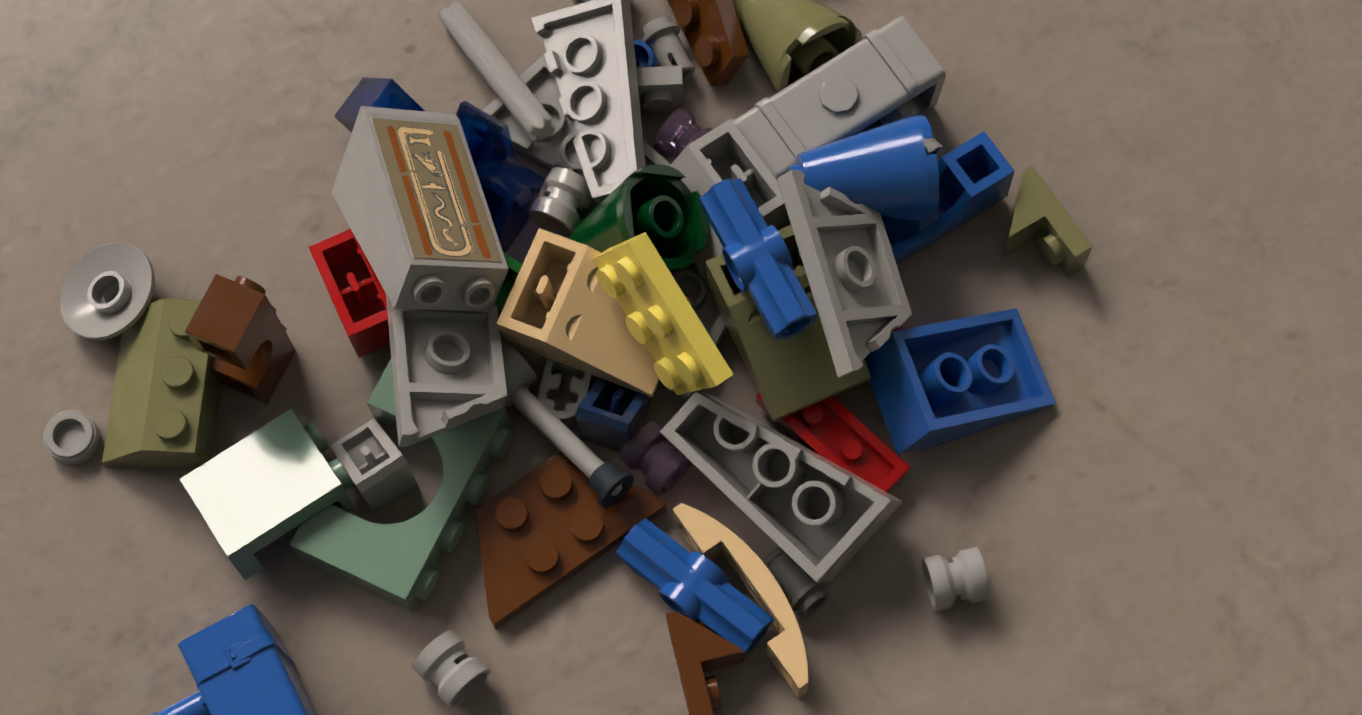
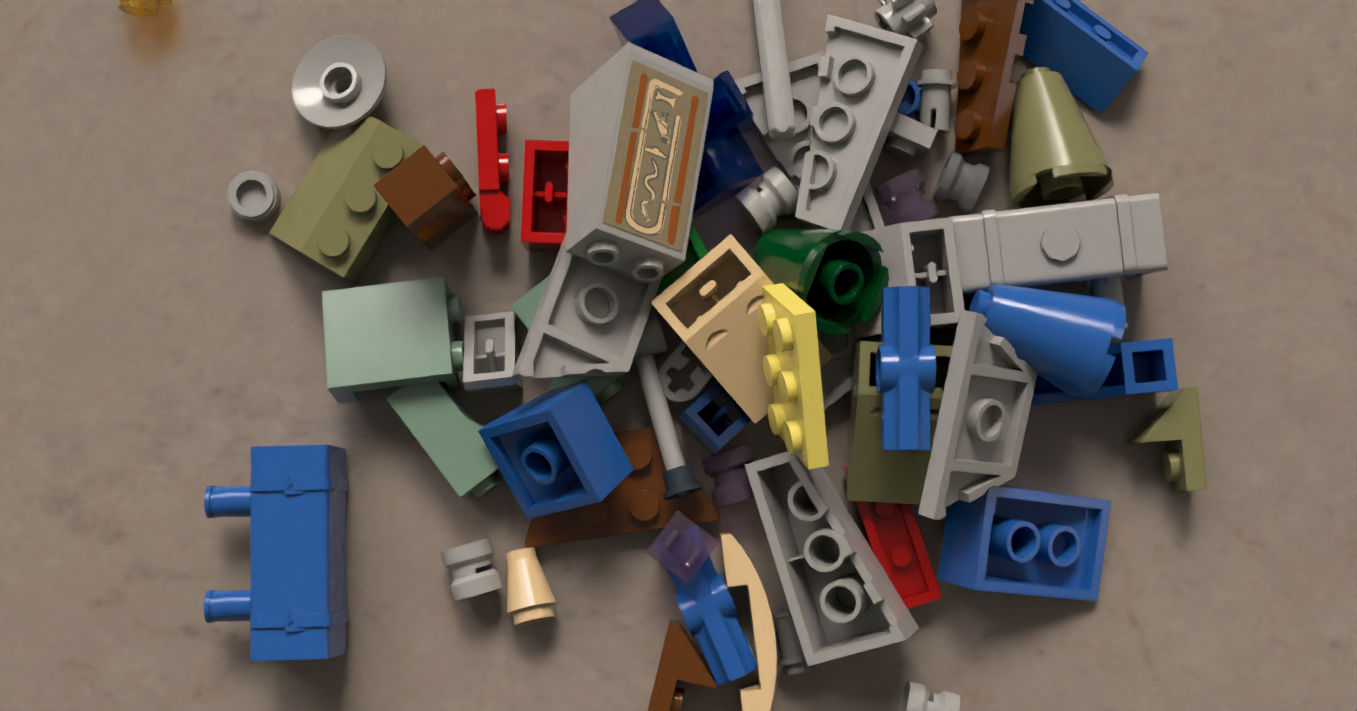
camera: 25 degrees right, 15 degrees up
(288, 296) = (492, 166): none -> red hinge
(476, 505) = (557, 451): none -> blue slope
(517, 663) = (528, 590): none -> tan cone
(641, 536) = (682, 546): none -> clear purple tile
(726, 100) = (961, 182): none -> dark grey wheel

